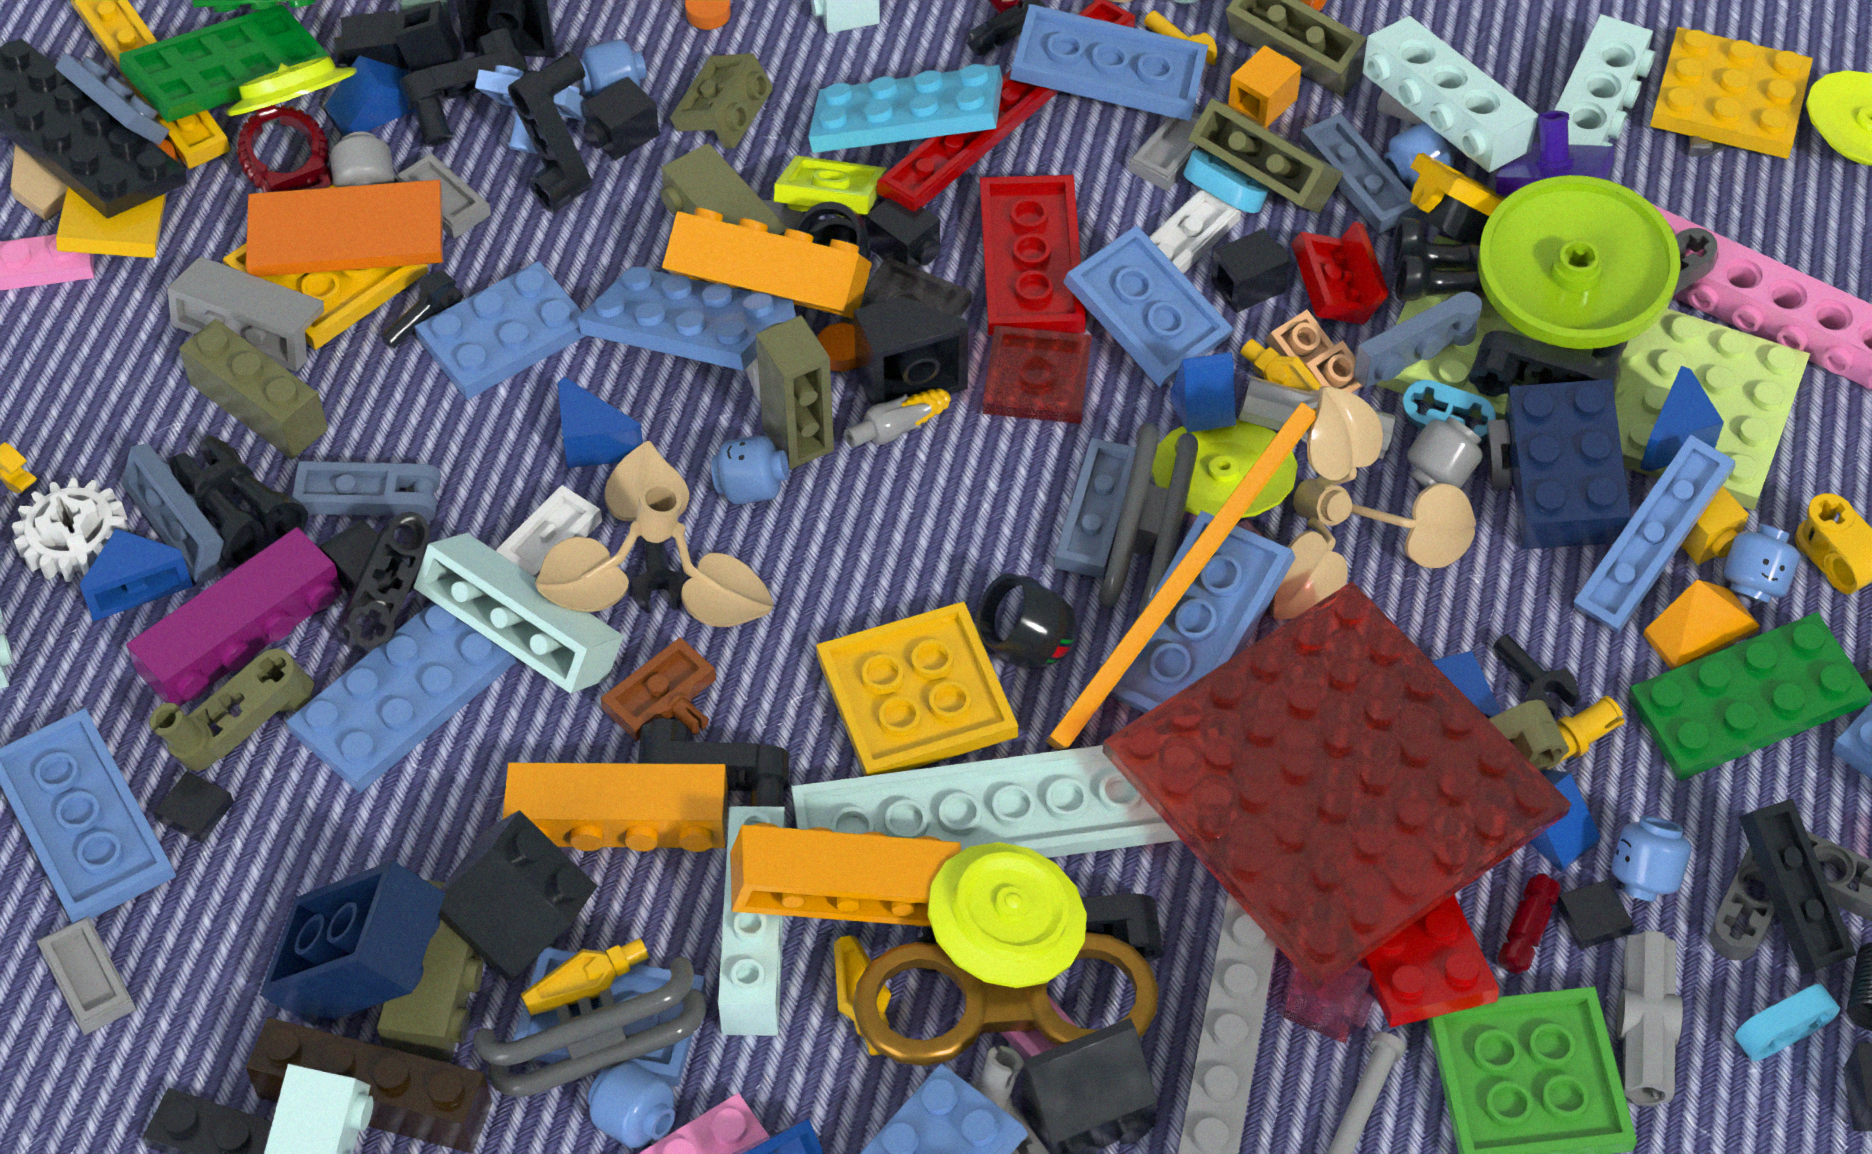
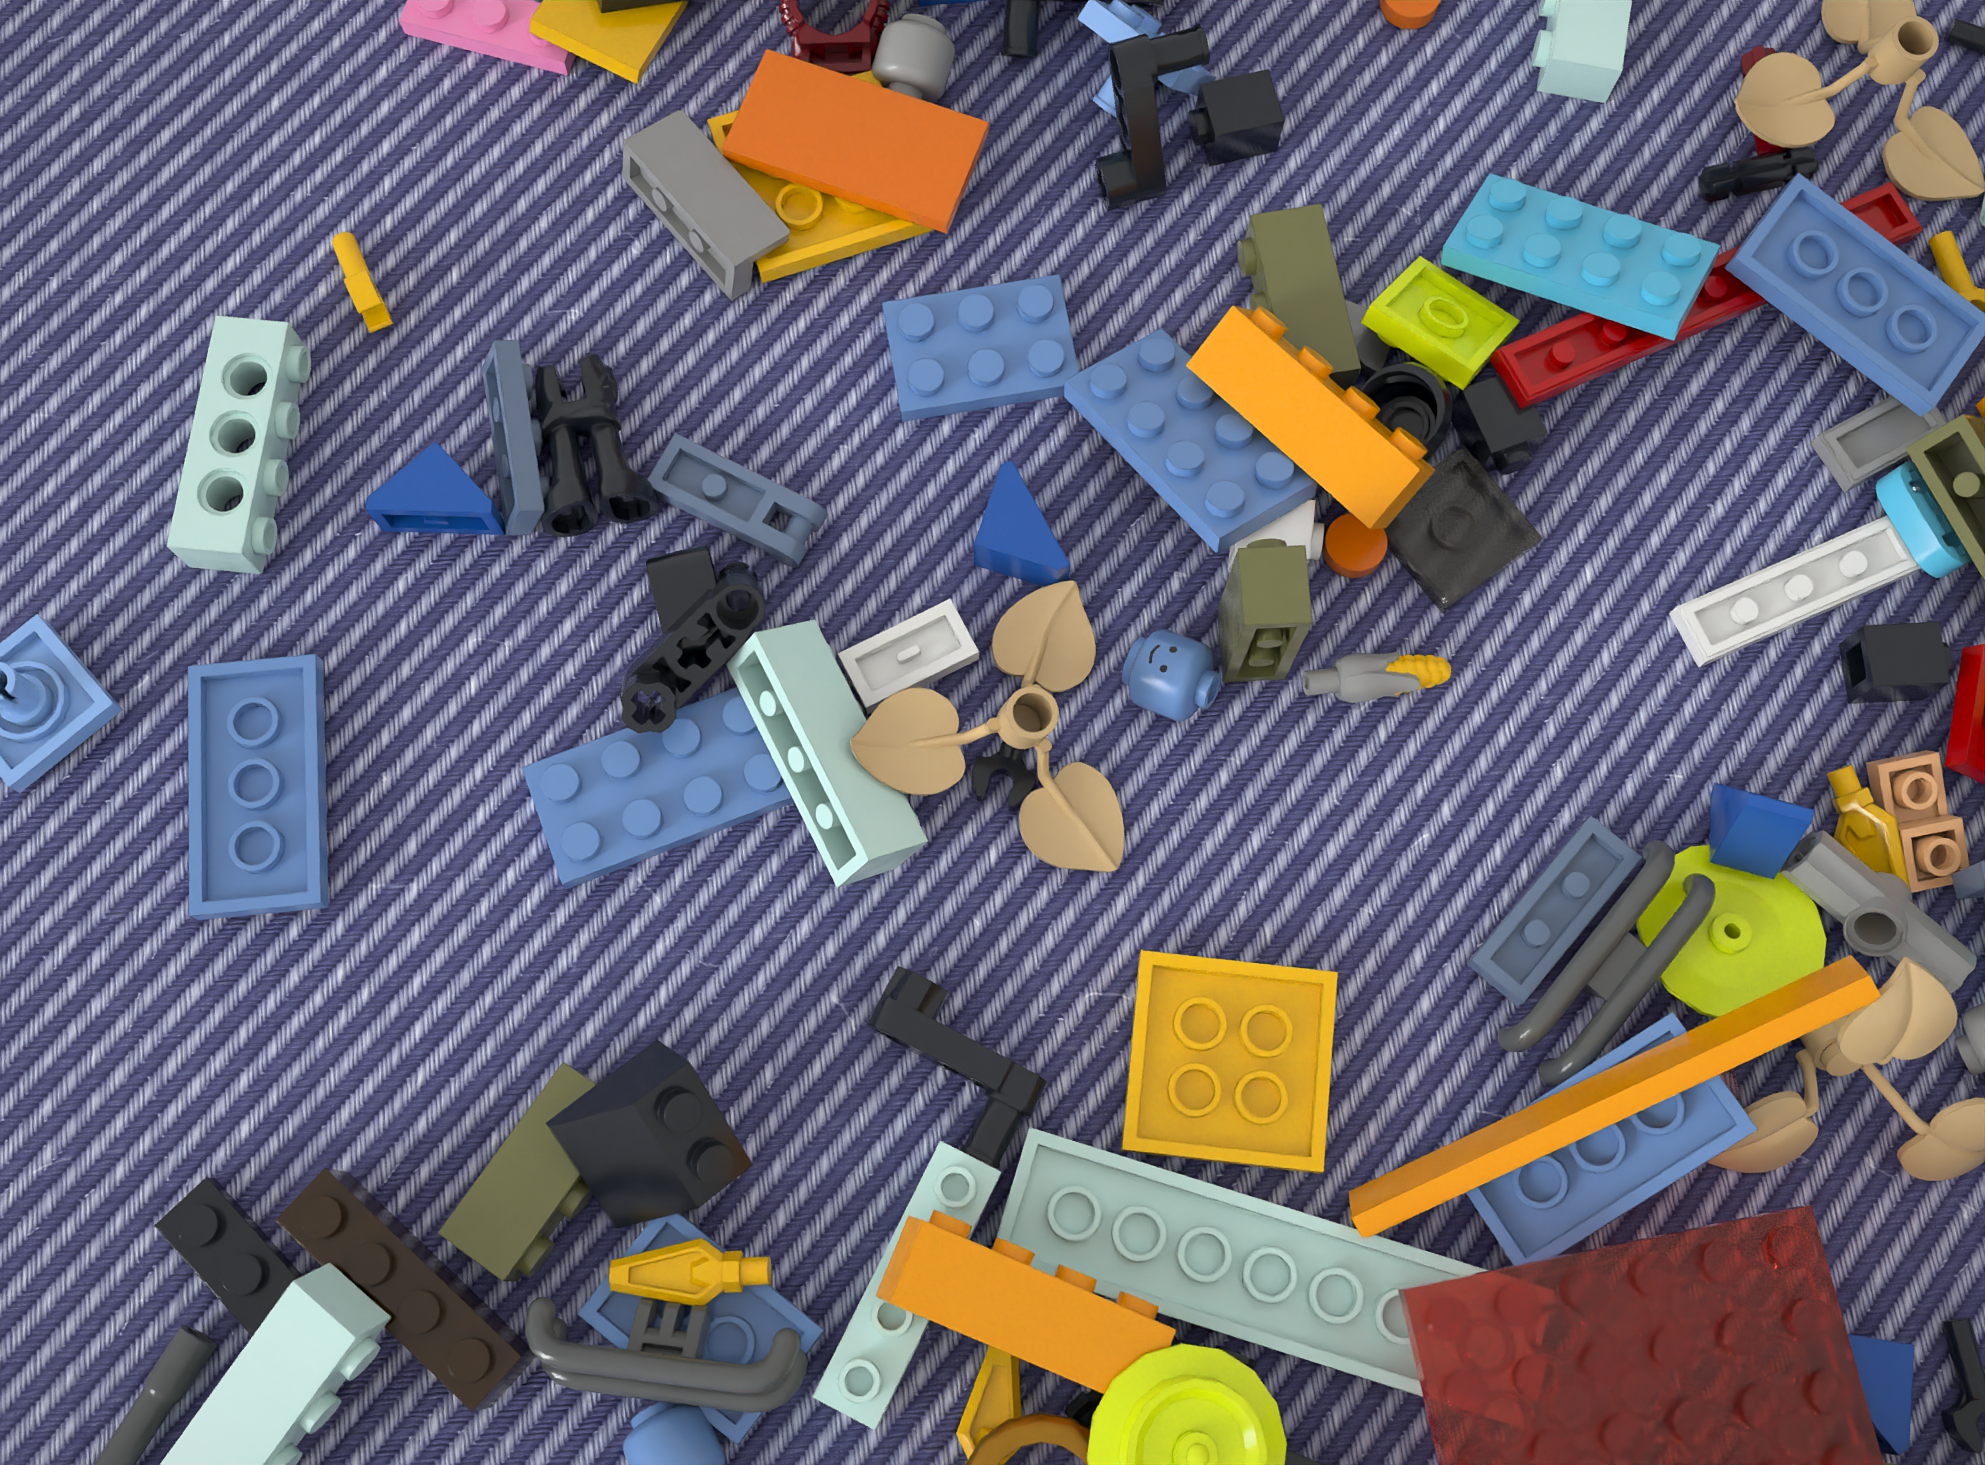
camera: 25 degrees right, 20 degrees up
(44, 531) = (381, 393): white gear -> none
(86, 975) = (186, 986): light grey tile -> none
(194, 807) = (383, 828): black tile -> none
(235, 618) = (520, 611): magenta brick -> none
(254, 388) = (667, 312): olive brick -> none
(261, 689) = (508, 721): olive beam -> none
(354, 944) = (447, 1132): dark blue brick -> none
(436, 295) = (922, 275): black bar -> none
(460, 203) = (1006, 152): light grey tile -> none
(609, 64) = (1254, 42): medium blue head -> none
(622, 804) = (826, 1055): light orange brick -> none
(662, 690) = (943, 924): dark orange plate -> none
(724, 97) = (1371, 137): olive bracket -> none
(909, 350) = (1424, 604): black slope -> none
(1029, 250) = (1638, 520): red plate -> none
(1037, 374) = (1568, 692): clear red plate -> none
(1042, 629) = (1408, 1053): black helmet -> none
(1147, 305) = (1745, 663): medium blue plate -> none

